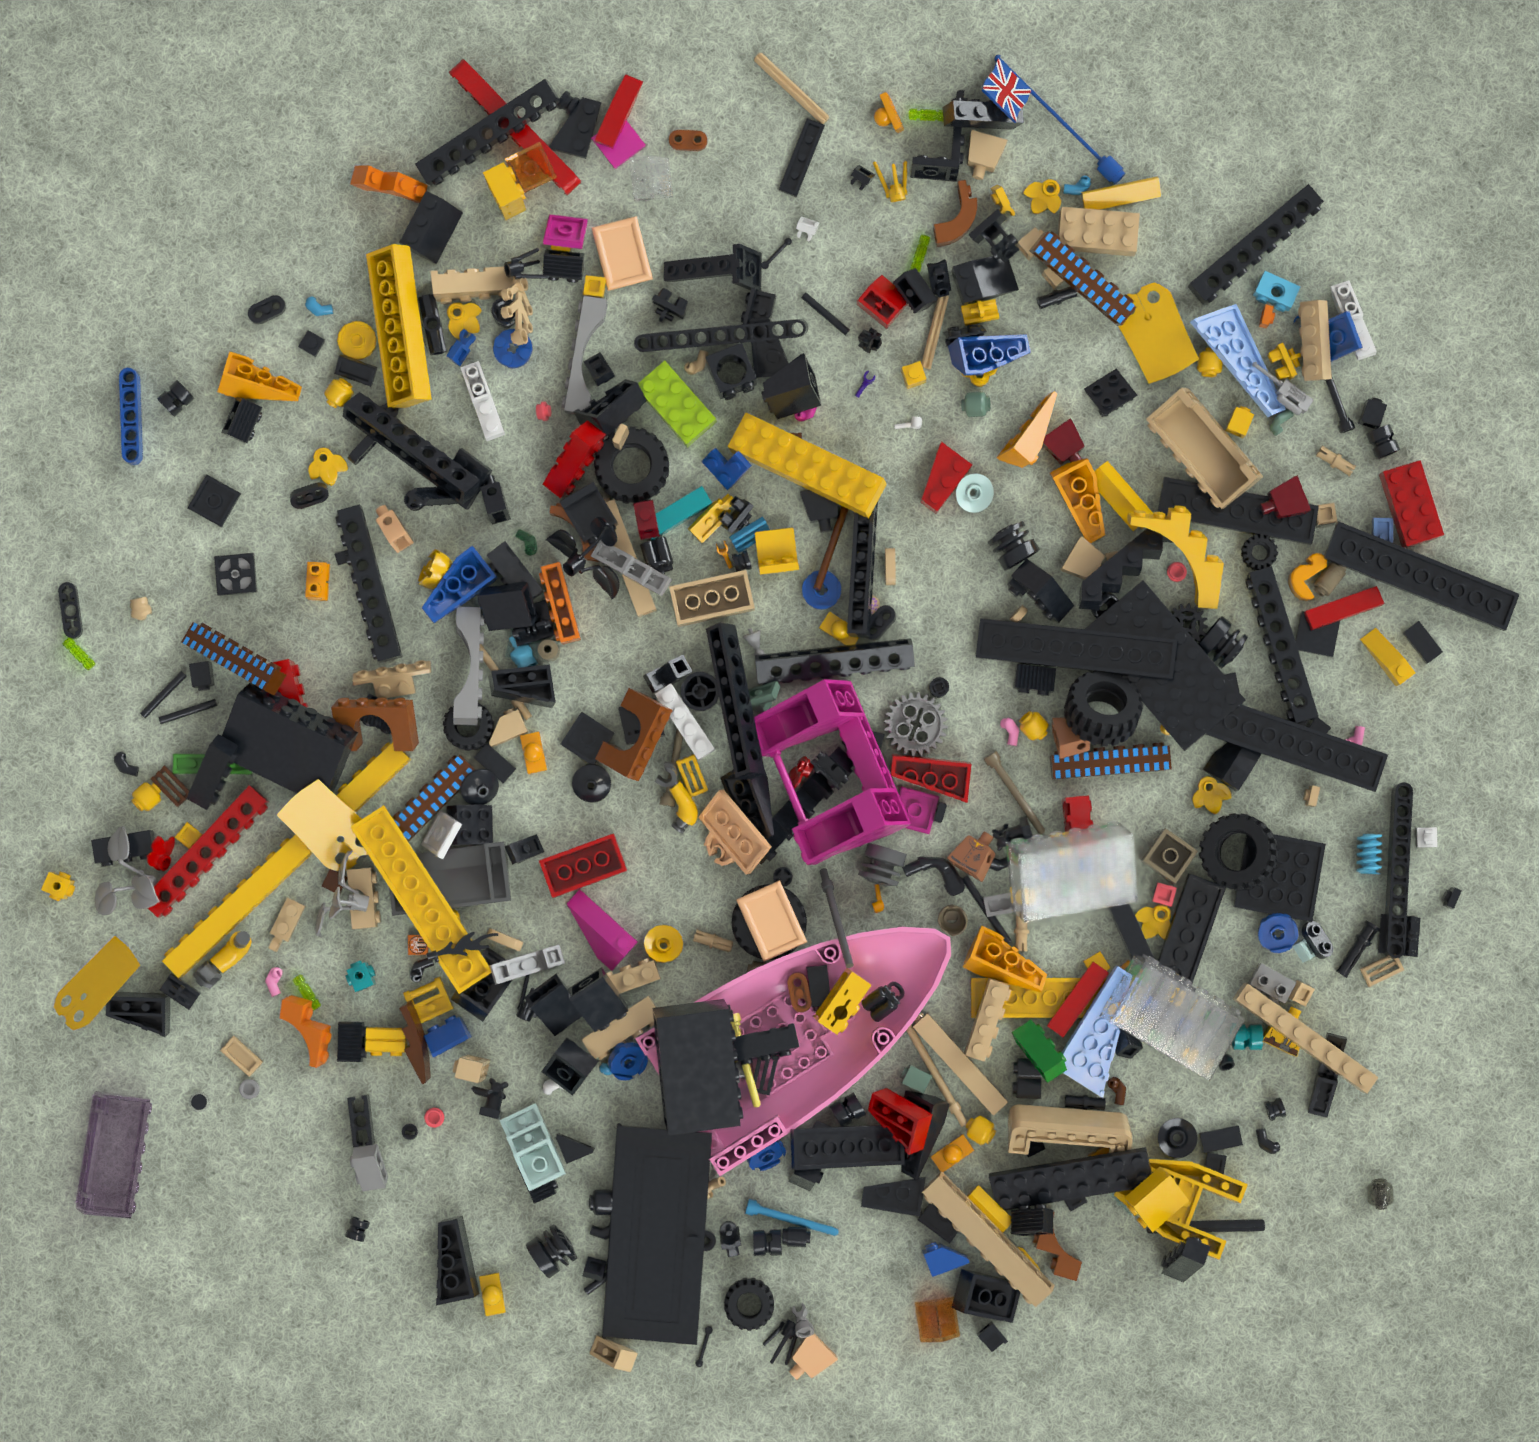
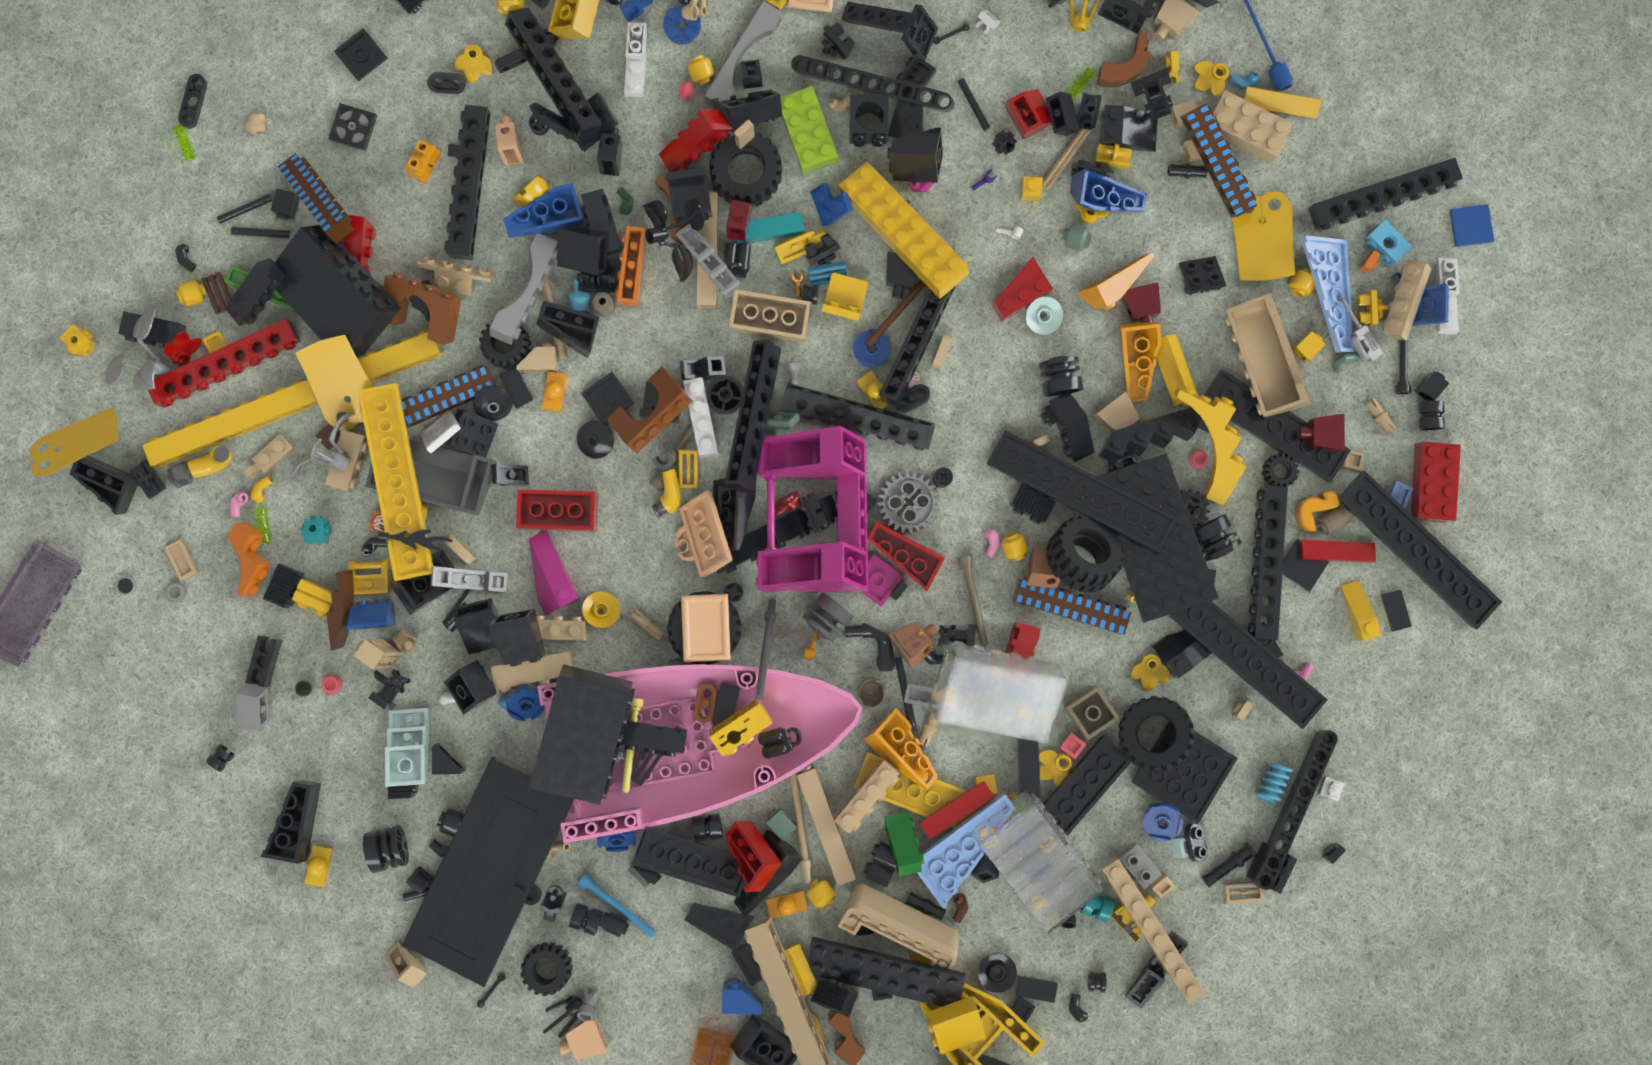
camera: 10 degrees right, 0 degrees up
(287, 958) = (256, 493): none -> yellow arm
(488, 1048) = (405, 641): none -> tan arm
(549, 385) = (701, 70): none -> yellow head
(1351, 241) = (1471, 225): none -> blue tile

